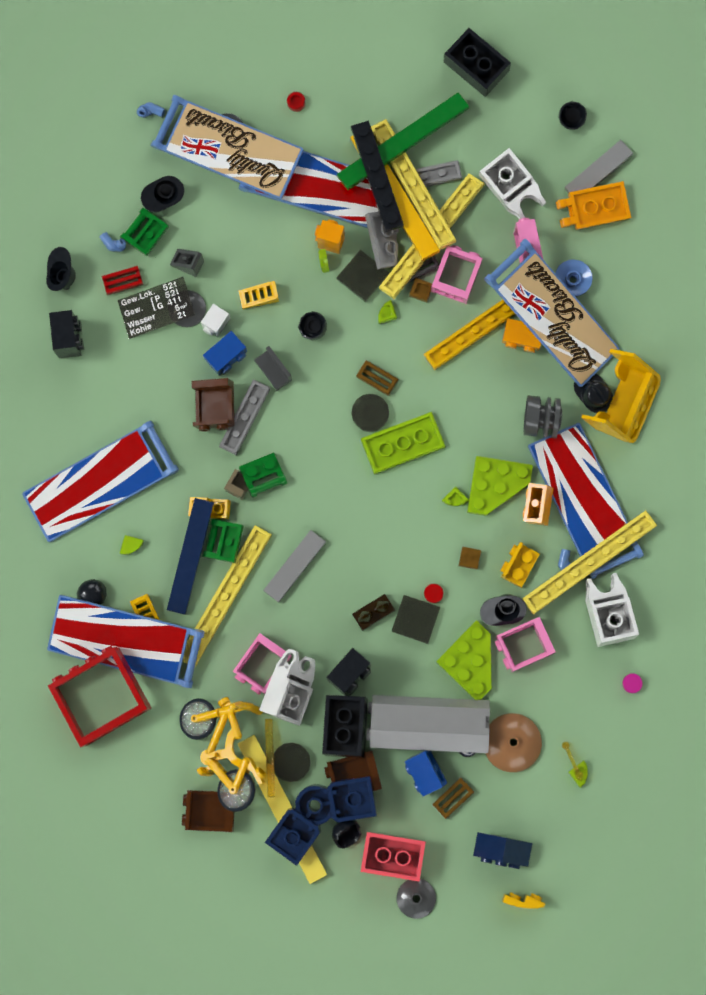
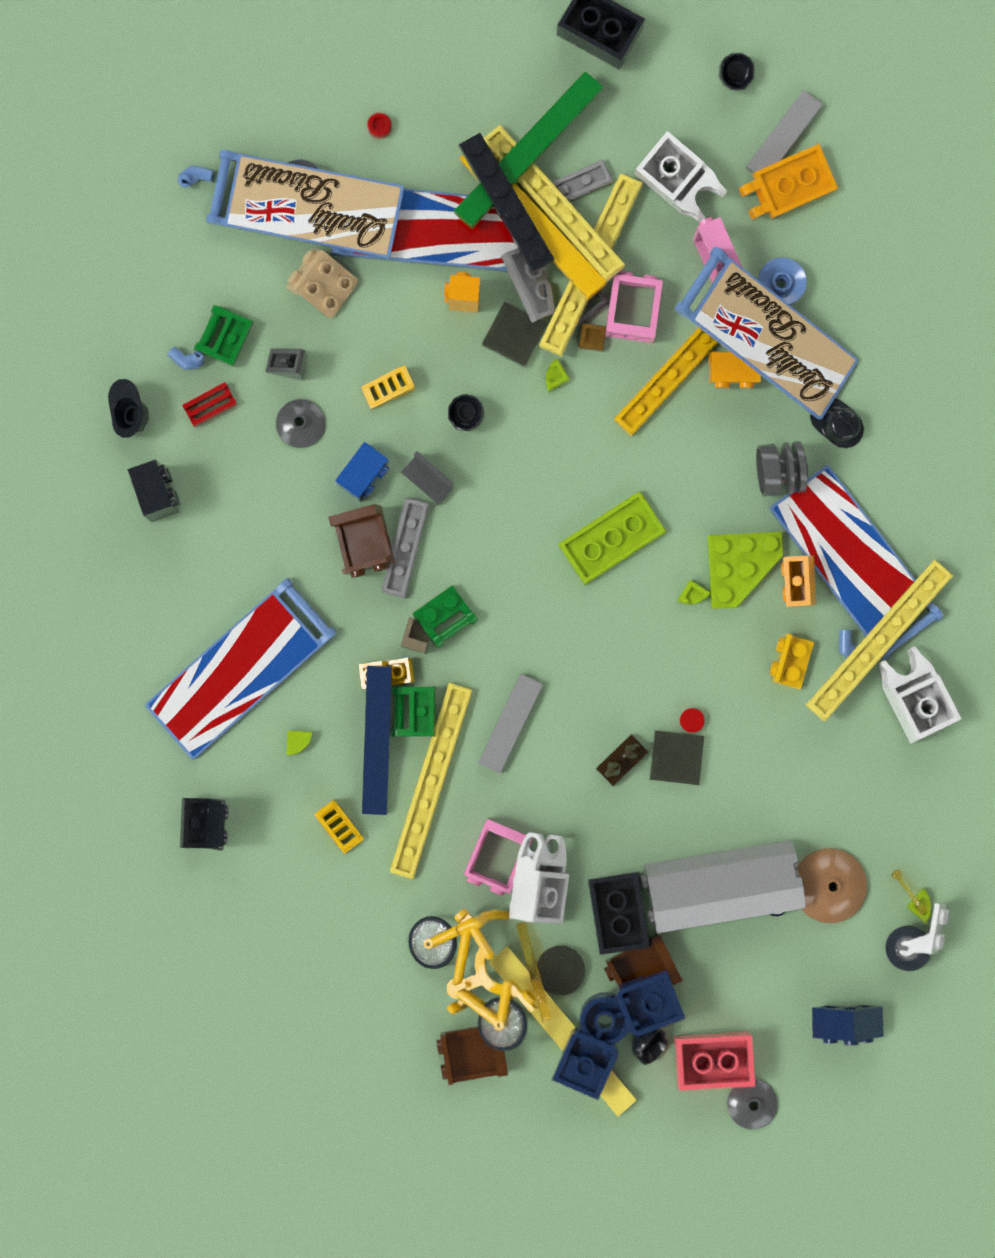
camera: 20 degrees left, 5 degrees up
(44, 590) = (203, 823): none -> black bracket
(92, 591) = (262, 814): black hair -> none
(143, 704) = (334, 909): red window -> none
(148, 644) = (317, 864): flag -> none
(156, 307) = (261, 431): clear smoke sticker -> none
(162, 193) = (236, 282): black piece -> none
(215, 320) = (340, 432): white brick -> none
(227, 207) = (322, 282): none -> tan bracket
(323, 260) = (460, 325): lime tile -> none
(349, 672) = (611, 846): black brick -> none
(370, 412) = (562, 508): clear smoke tile -> none
(390, 386) = (541, 455): pearl gold tile -> none
(425, 772) = (732, 948): blue brick -> none
(465, 786) = (764, 963): pearl gold tile -> none
(469, 558) = (727, 666): pearl gold tile -> none
(470, 661) = (756, 795): lime plate -> none
(503, 610) = (785, 723): black piece -> none
(531, 901) = (893, 1079): yellow slope -> none
(542, 635) = (839, 745): bright pink window -> none
(564, 803) = (911, 948): none -> plate
(631, 400) = (886, 422): yellow windscreen -> none
(632, 683) = (962, 779): dark pink tile -> none

